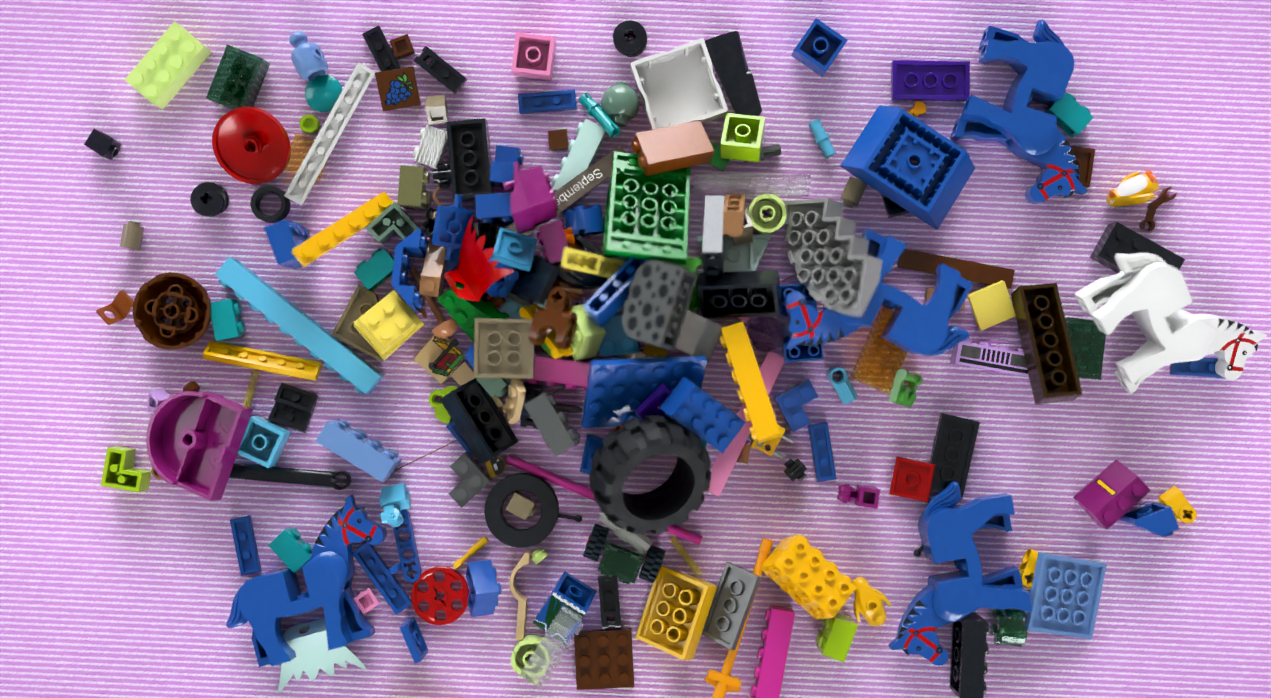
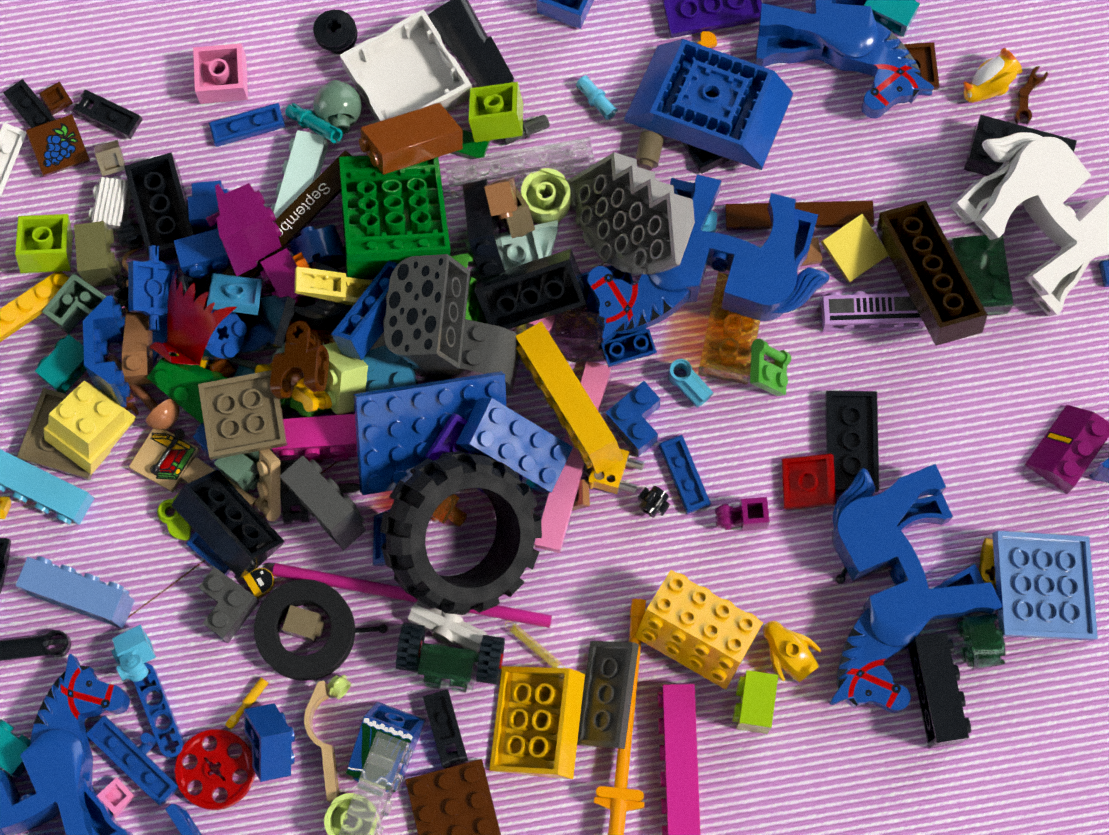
camera: 15 degrees left, 15 degrees down
(375, 170) = (44, 243): none -> lime brick
(558, 140) = (268, 165): reddish brown tile -> none

